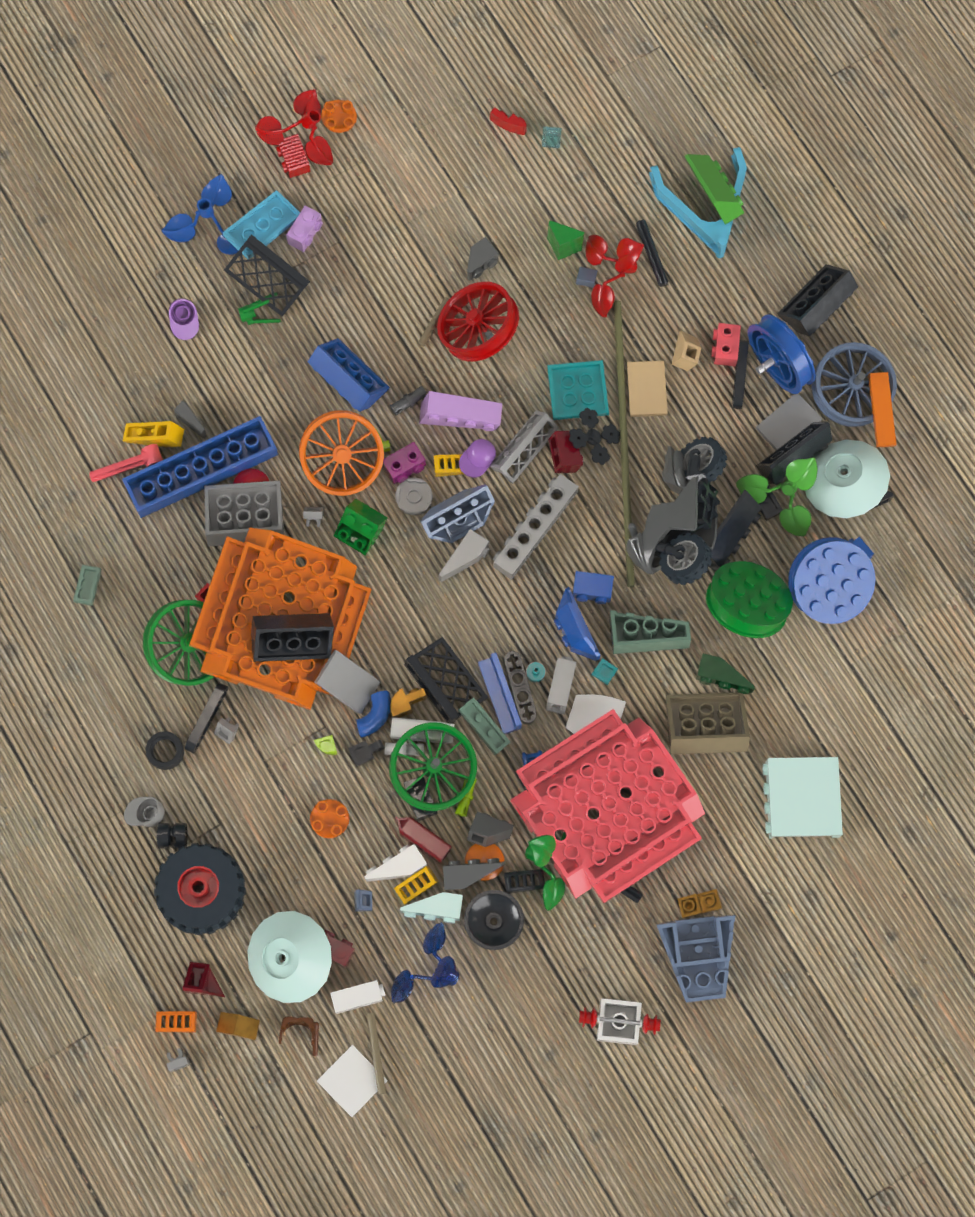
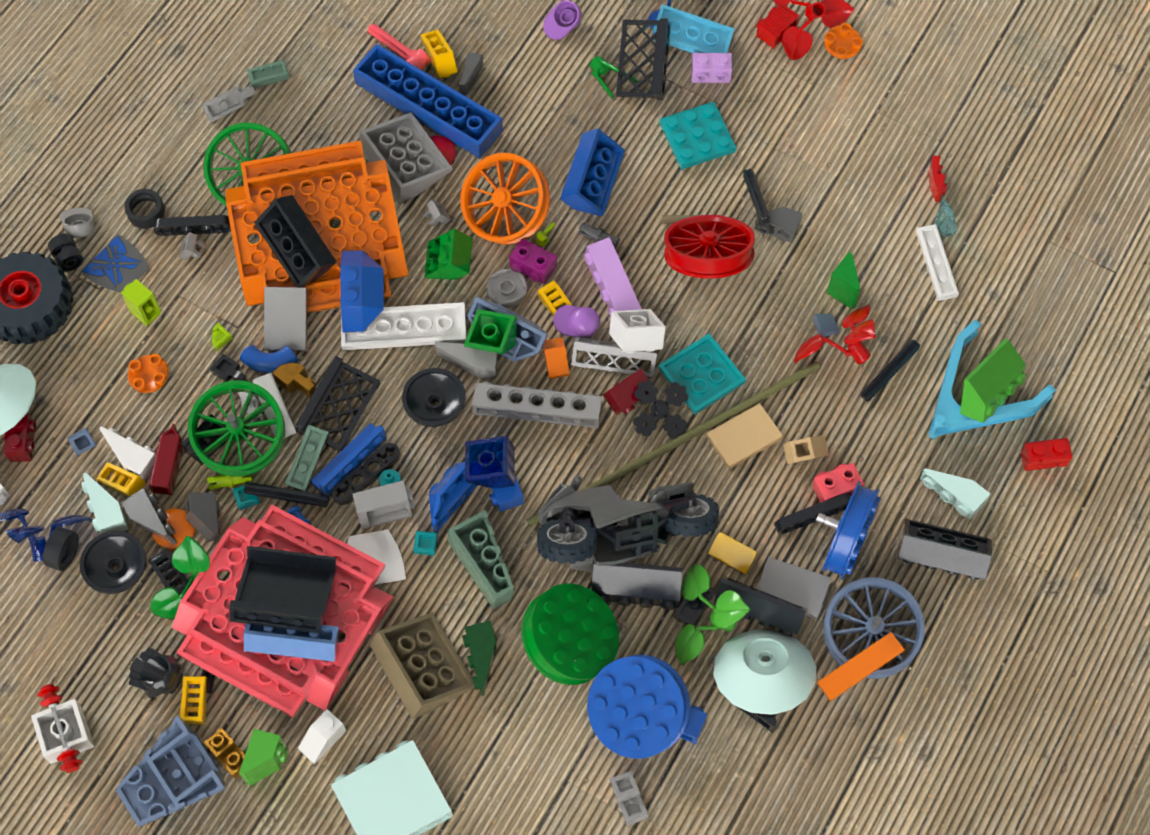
camera: 65 degrees right, 10 degrees down
(97, 632) = (227, 102): none -> light grey hinge
(205, 800) = (116, 265): none -> sticker
(262, 792) = (141, 302): none -> lime brick
(358, 275) = (697, 135): none -> teal plate
(360, 608) = (360, 291): none -> blue wedge
(404, 594) = (411, 327): none -> white plate
(447, 261) = (756, 196): none -> black axle
(460, 526) = (492, 332): none -> green slope
(462, 958) = (60, 549): none -> black tyre
(486, 790) = (245, 500): none -> teal tile
(491, 589) = (429, 387): none -> black dish
(502, 490) = (556, 358): none -> orange slope
(505, 758) = (286, 494): none -> black axle
(519, 416) = (637, 330): none -> white brick
(578, 584) = (490, 462): none -> clear blue slope
(579, 165) = (937, 262): none -> white tile
(605, 929) = (155, 673): none -> black hair
(607, 791) = (284, 590): none -> black panel
(648, 805) = (292, 642): none -> medium blue brick
(661, 911) = (201, 710): none -> yellow slope
(723, 875) = (263, 756): none -> bright green slope
(725, 826) = (321, 736): none -> white slope
(740, 450) = (732, 553): none -> yellow slope
(782, 262) = (962, 493): none -> light aqua slope
(784, 185) = (1046, 454): none -> red brick
(888, 627) = (629, 798): none -> light grey slope

